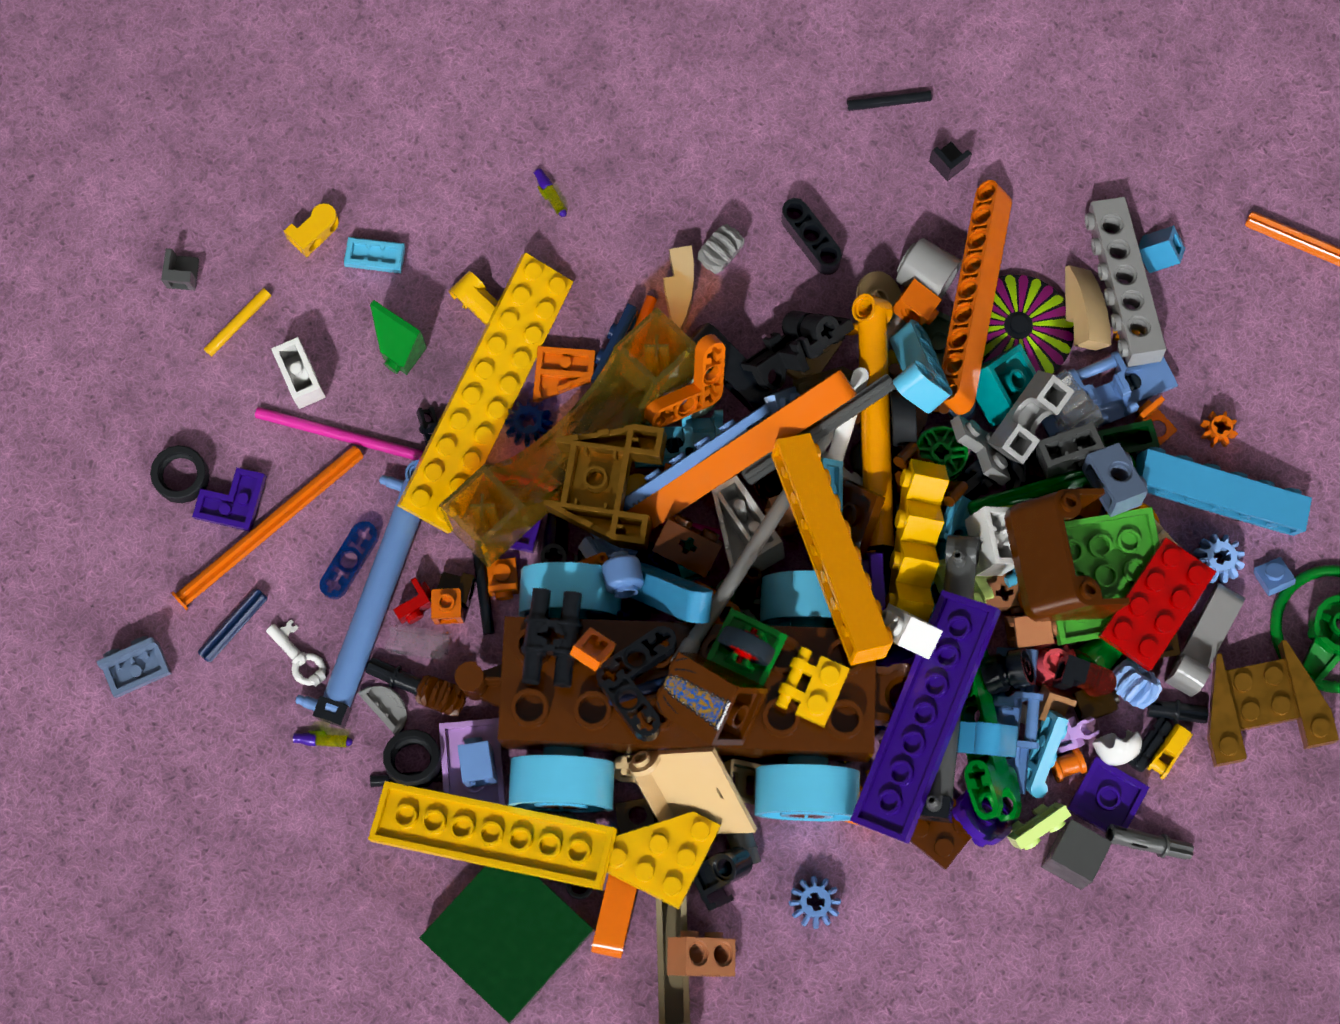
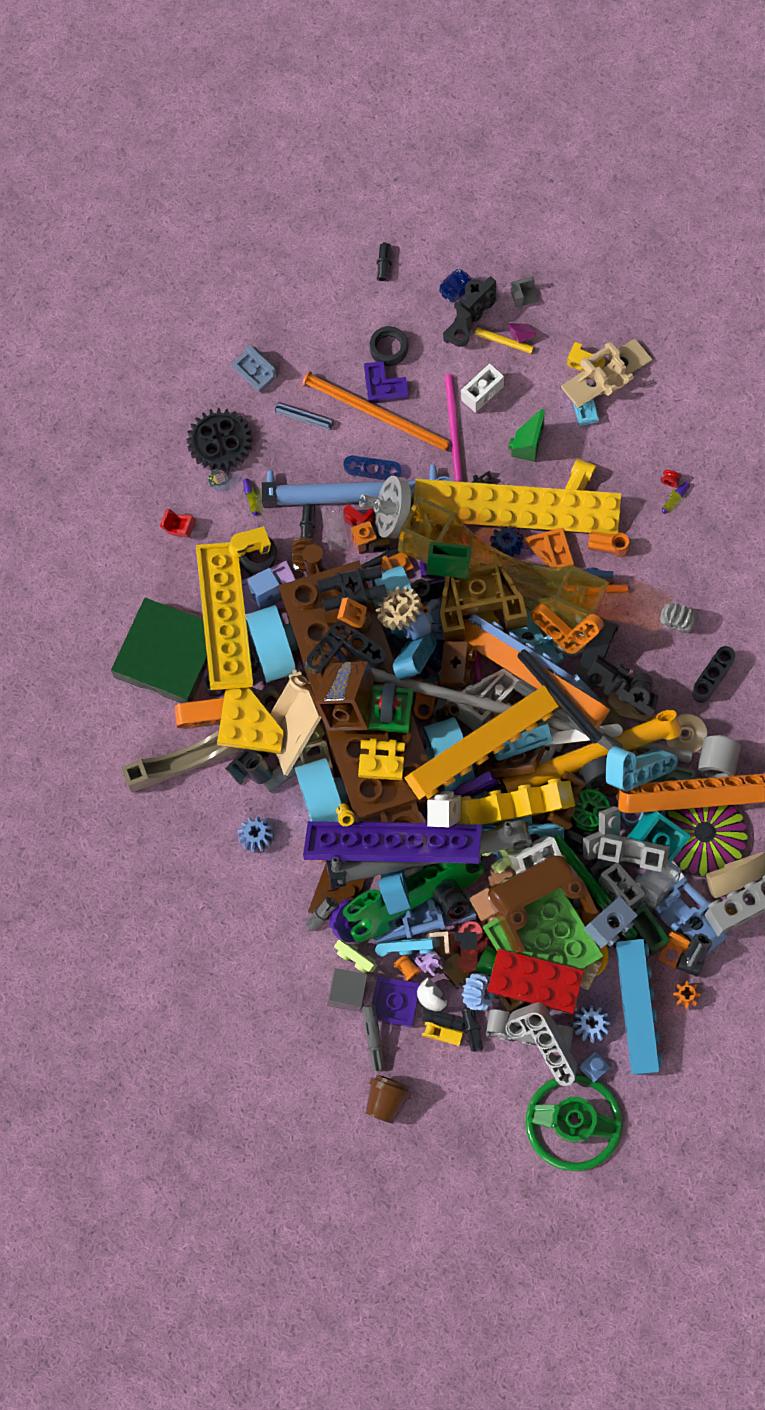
camera: 75 degrees right, 5 degrees down
(51, 435) = (384, 262): none -> black axle
(133, 353) = (454, 285): none -> clear blue gear
(169, 338) = (477, 298): none -> black plate
(223, 725) = (237, 434): none -> black gear
(236, 294) = (521, 332): none -> magenta slope
(278, 775) = (217, 479): none -> clear light blue tile
(298, 658) = (297, 462): white piece -> none
(322, 854) = (177, 524): none -> red bracket
(353, 205) = (609, 378): none -> tan piece
(387, 706) = (287, 527): light grey tile -> none
(397, 761) = (250, 541): none -> yellow leg
(428, 550) = (390, 506): none -> light grey piece
(523, 187) = (670, 478): none -> red bush
(549, 498) = (449, 560): none -> dark green piece
(581, 298) = (606, 543): none -> orange piece
(609, 578) = (399, 608): none -> tan gear
(680, 286) = (639, 603): tan slope -> none
(701, 955) = (191, 773): nougat brick -> none
(797, 425) = (559, 696): none -> black axle
(866, 766) = (345, 815): none -> yellow pin
(917, 304) = (689, 757): orange brick -> none
(961, 850) = (321, 913): none -> dark grey axle
(1178, 402) = (693, 958): none -> black piece
(1213, 621) = (545, 1044): none -> light grey beam
(1238, 854) = (386, 1098): none -> reddish brown piece
(1265, 697) = (500, 1079): pearl gold wedge -> none

